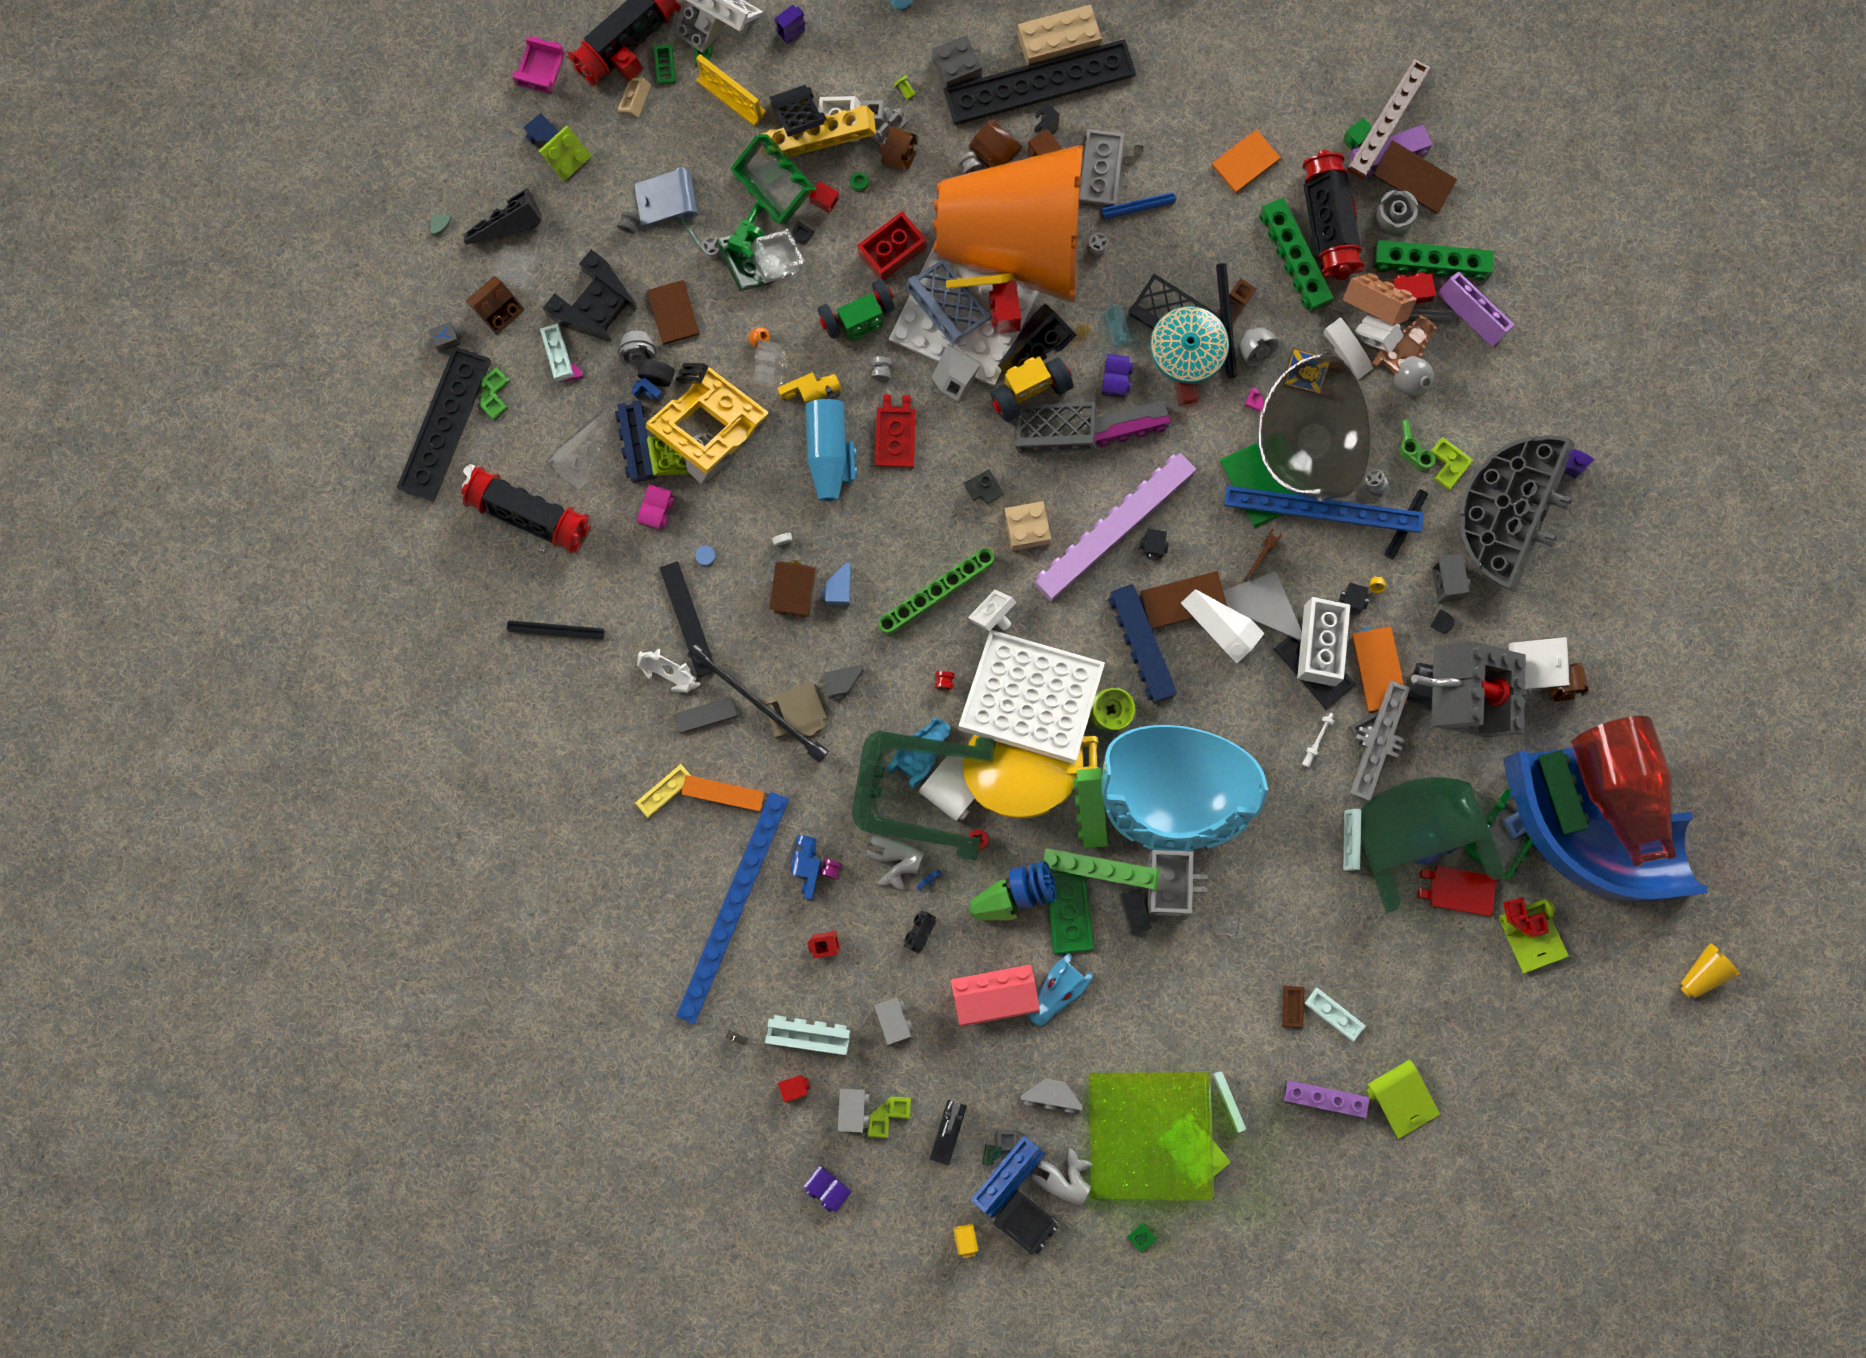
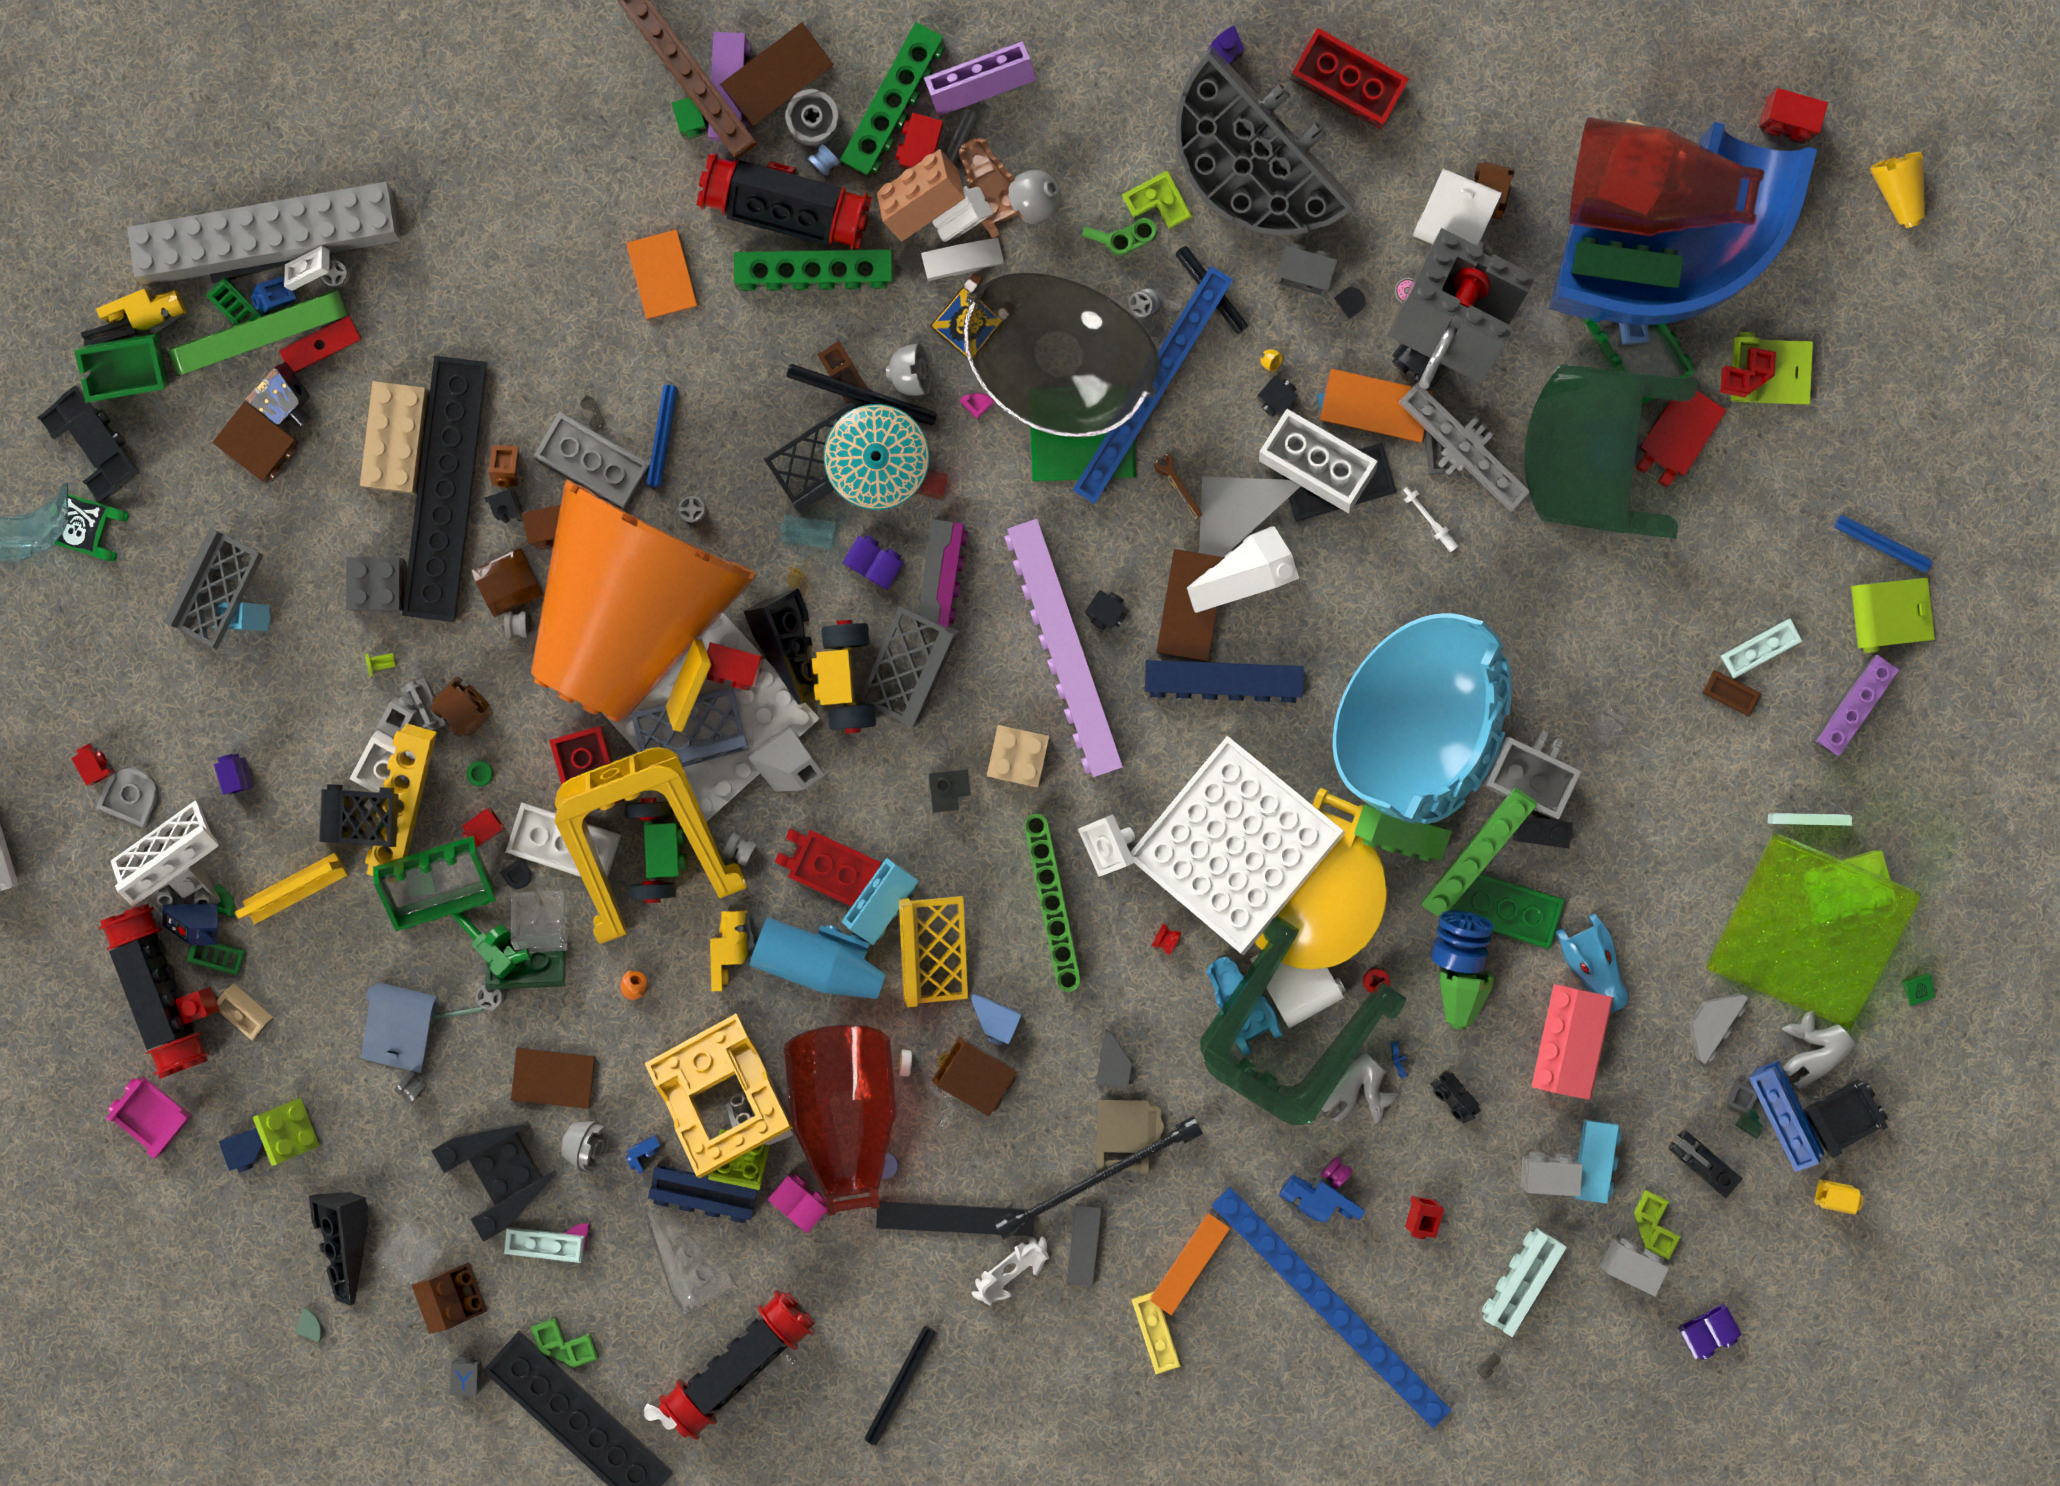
camera: 70 degrees left, 10 degrees up
(656, 372) = (627, 1133): black tyre -> none
(681, 39) = (192, 922): none -> dark blue slope
(692, 369) = (639, 1096): black tile -> none
(731, 503) = (842, 1108): none -> clear red windscreen
(769, 362) = (679, 990): clear brick -> none
(794, 1088) = (1577, 1323): red brick -> none
(835, 254) = (539, 840): none -> white tile
(857, 511) = (910, 950): none -> yellow fence
(886, 475) = (880, 901): none -> medium azure brick
(912, 292) = (600, 788): none -> yellow piece
(916, 1052) = (1598, 1159): none -> medium azure brick
(1072, 112) = (504, 466): none -> dark orange bracket
(1121, 706) = (1302, 745): lime wheel -> none
(1352, 839) = (1567, 534): light aqua tile -> none
(1371, 232) = (824, 160): none -> light blue wheel
(1449, 1071) = (1883, 543): none -> blue axle
(1595, 553) = (1349, 78): none -> red brick
(1720, 870) = (1793, 115): none -> red brick

